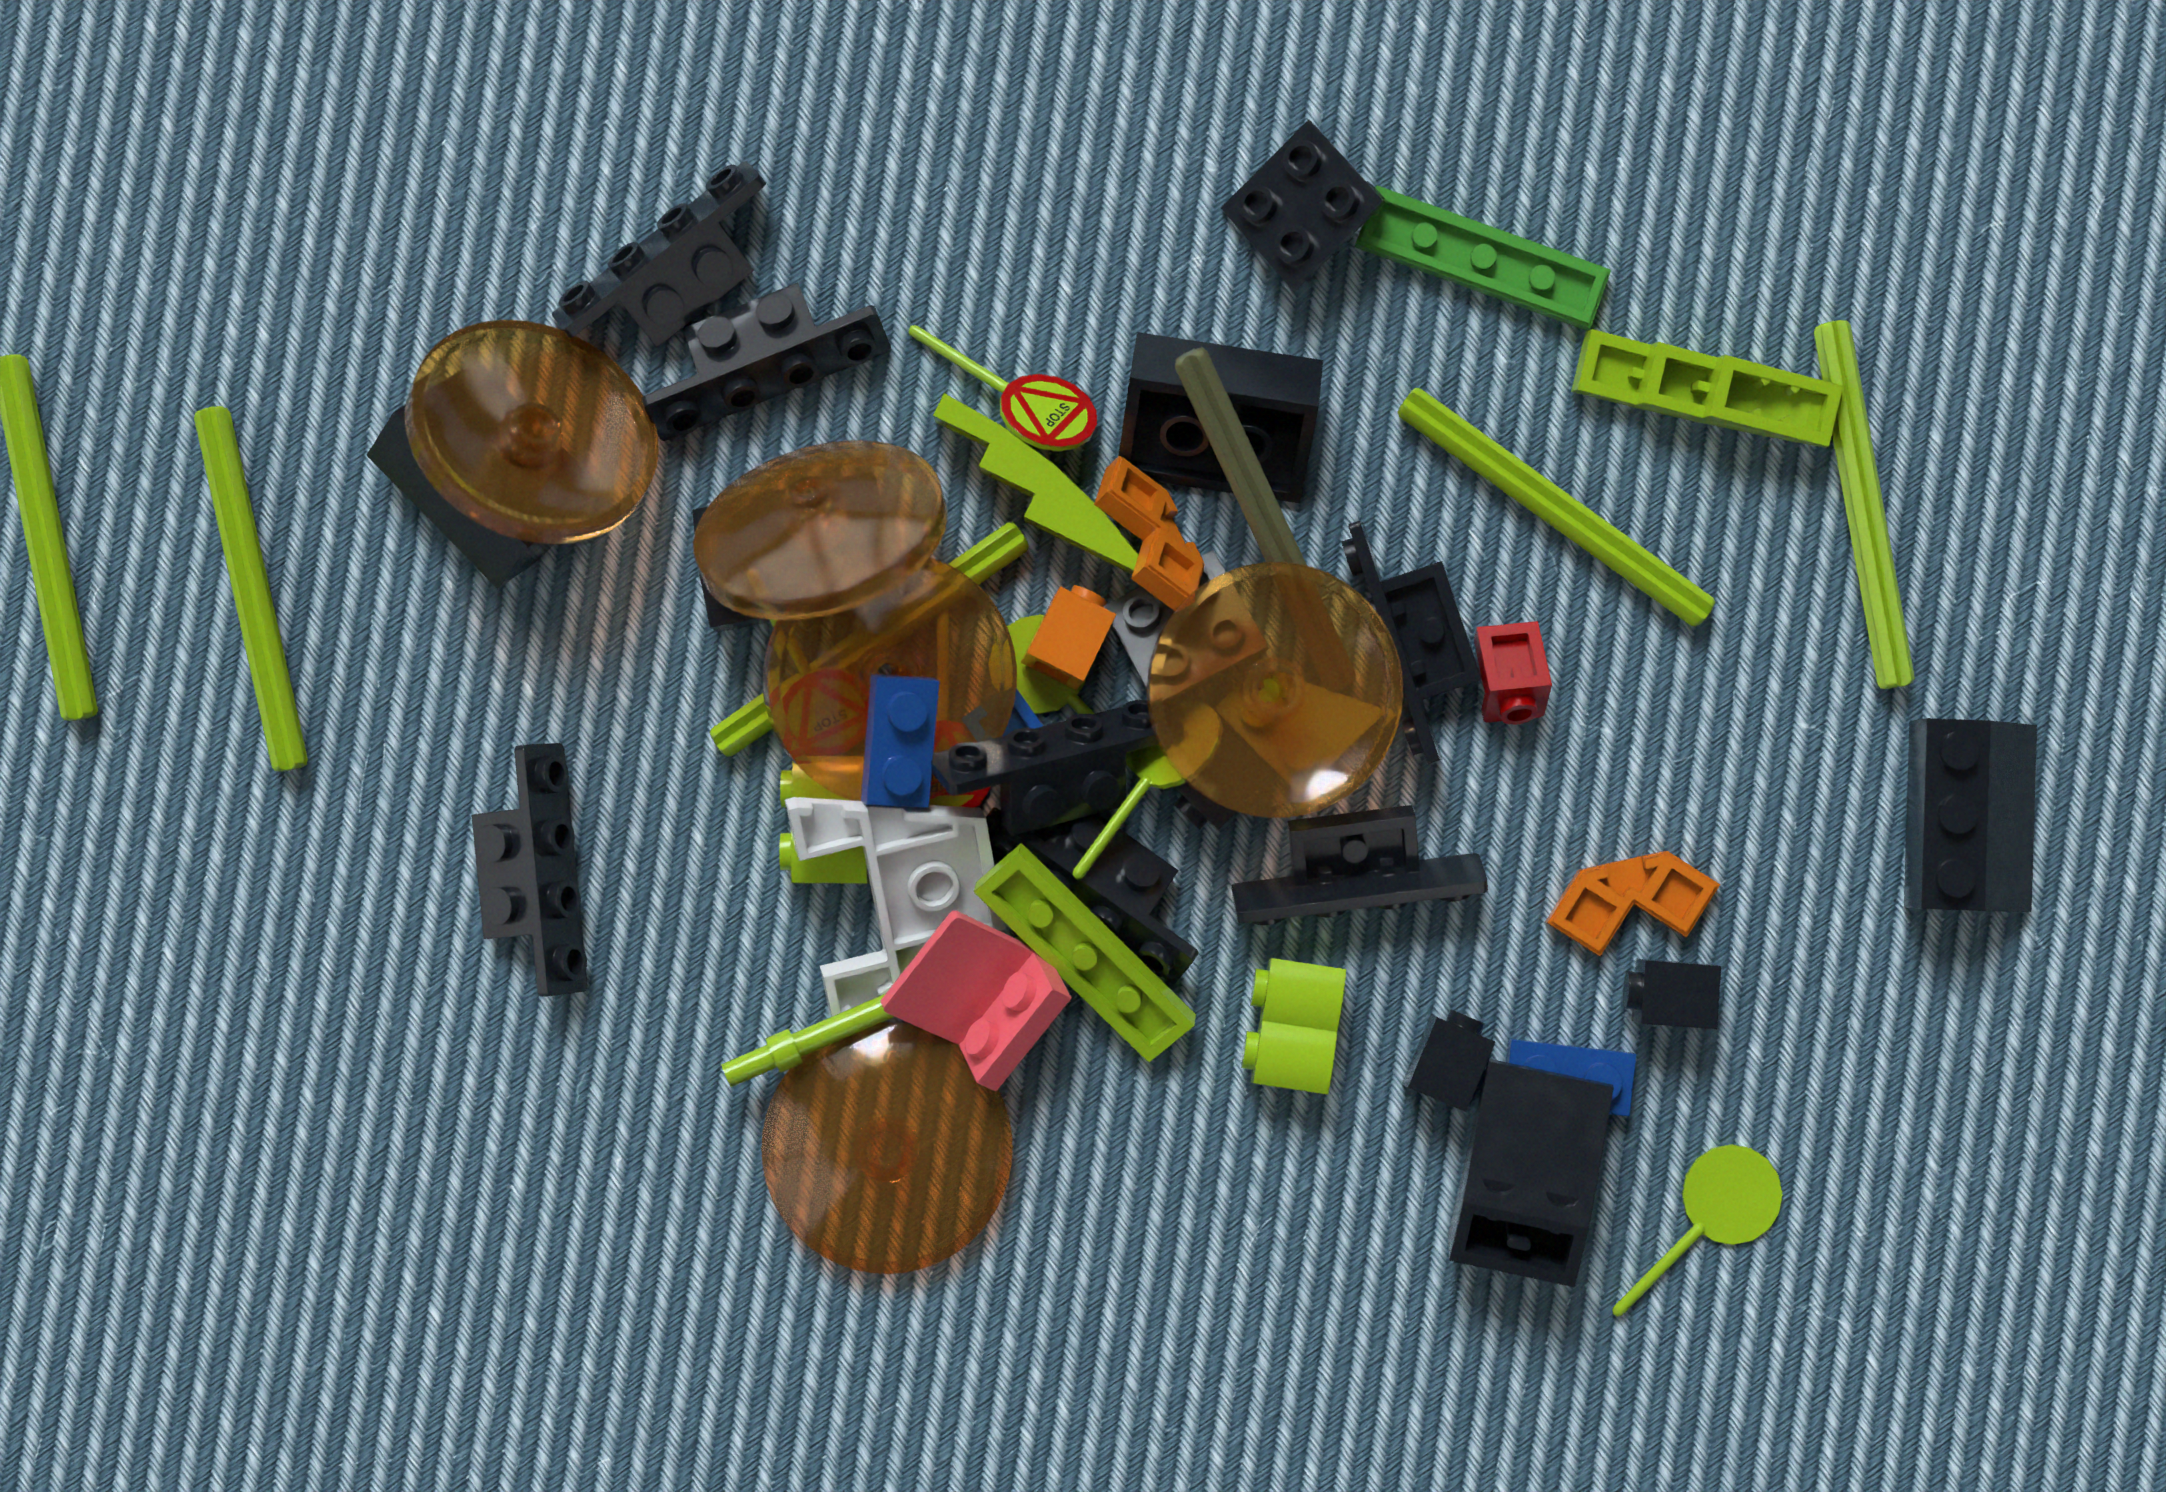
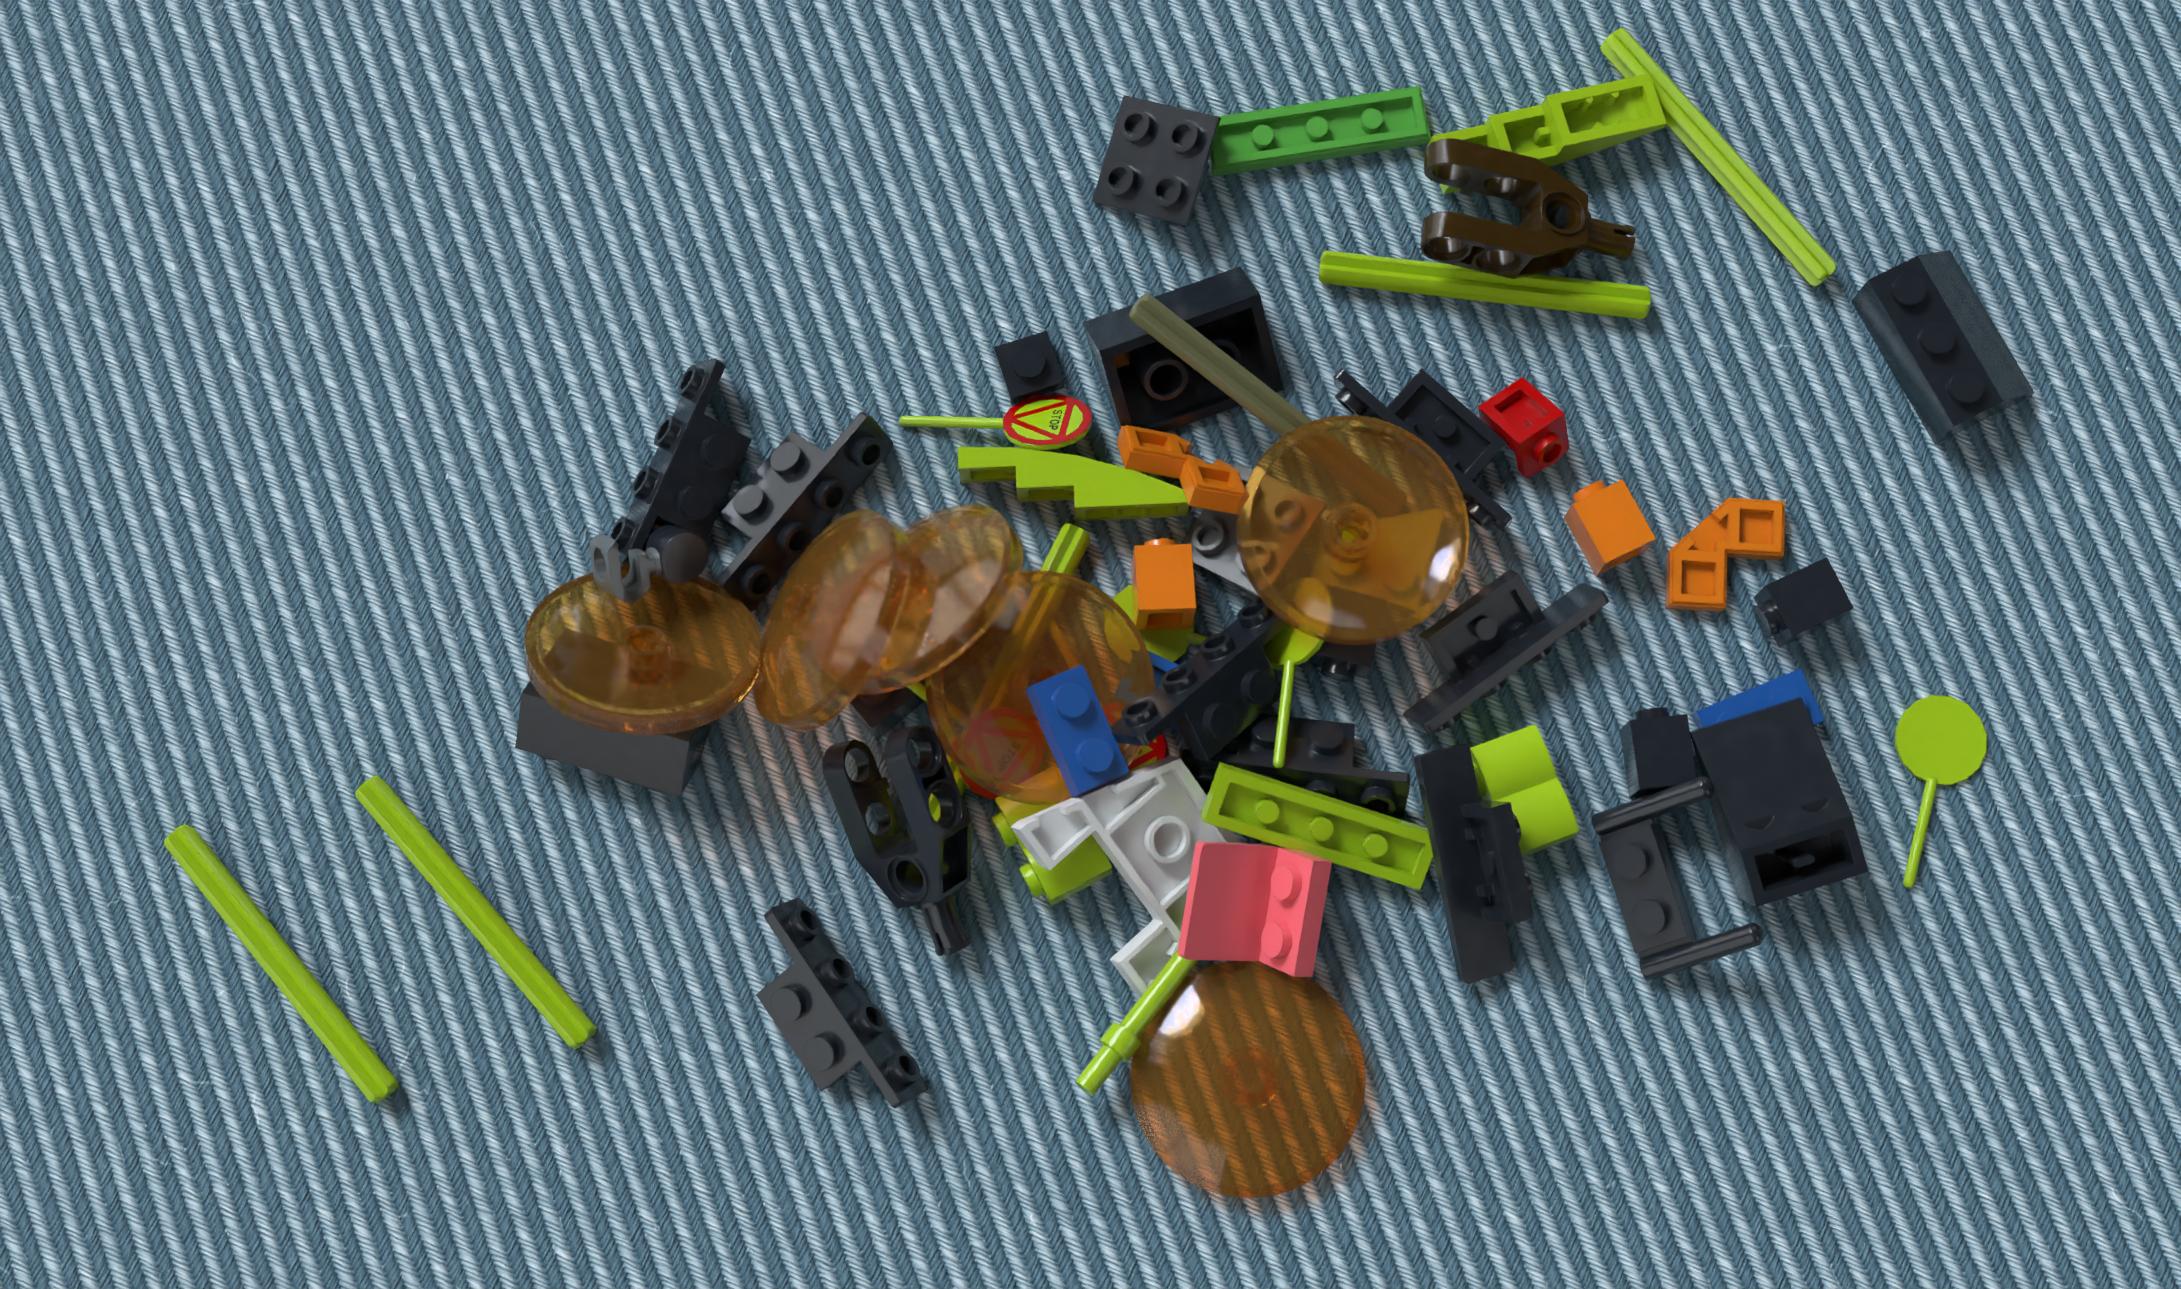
camera: 30 degrees left, 10 degrees down
(610, 347) = (669, 555): none -> leg
(679, 761) = (908, 870): none -> black piece
(724, 505) = (832, 620): none -> clear orange dish
(1063, 344) = (1029, 367): none -> black plate
(1210, 1068) = (1474, 862): none -> black bracket
(1366, 1184) = (1649, 887): none -> black plate
(1533, 813) = (1608, 525): none -> orange brick
(1659, 451) = (1552, 211): none -> dark brown piece

